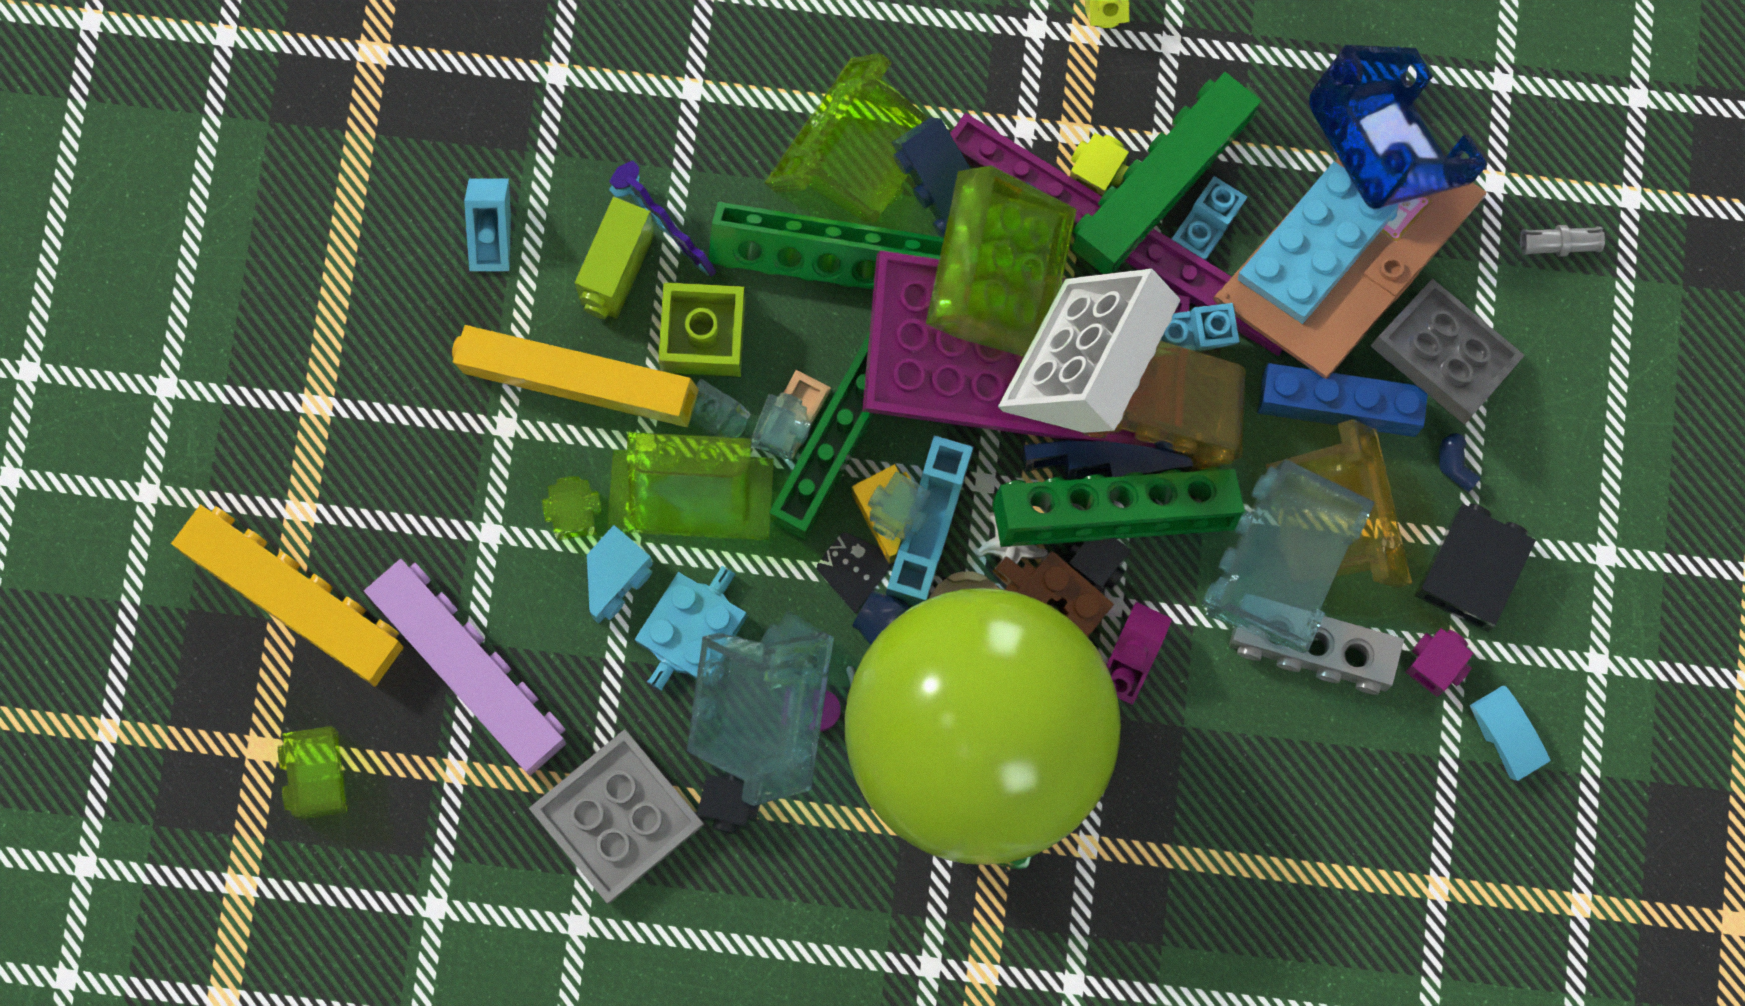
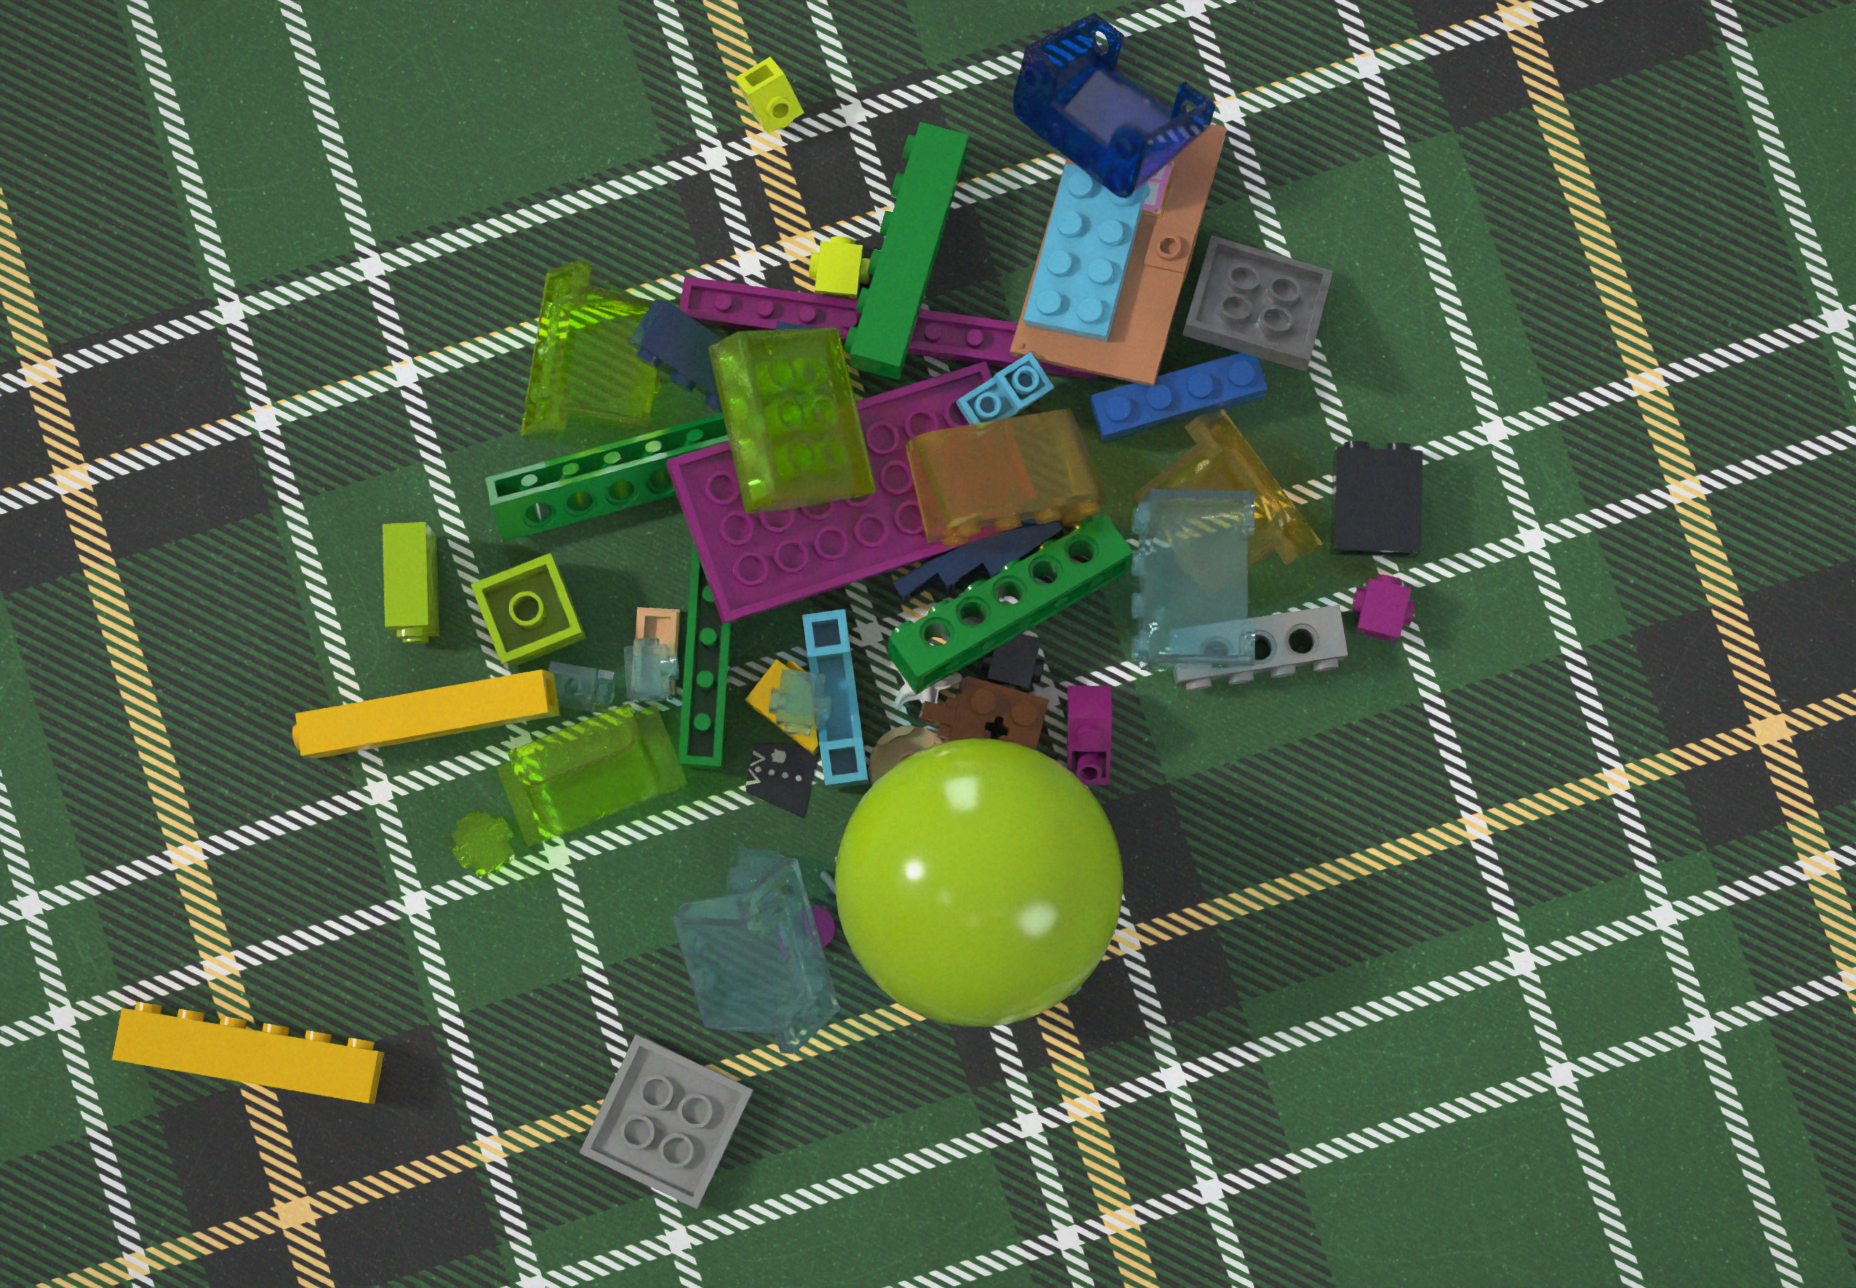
camera: 20 degrees left, 5 degrees up
(312, 773) = (355, 1215): clear neon green brick -> none
(465, 667) = (453, 1044): lavender brick -> none
(488, 224) = (269, 601): medium azure slope -> none
(613, 570) = (551, 887): medium azure slope -> none
(626, 182) = (385, 499): dark purple piece -> none
(682, 619) = (644, 899): medium azure plate -> none
(723, 804) = (763, 1063): black brick -> none
(878, 614) = (831, 812): dark blue piece -> none
(1092, 350) = (917, 467): white slope -> none
(1209, 218) = (969, 273): medium azure slope -> none
(1453, 462) = (1310, 407): dark blue arm -> none
(1511, 732) = (1479, 646): medium azure slope -> none
(1562, 240) = (1319, 140): light grey pin -> none

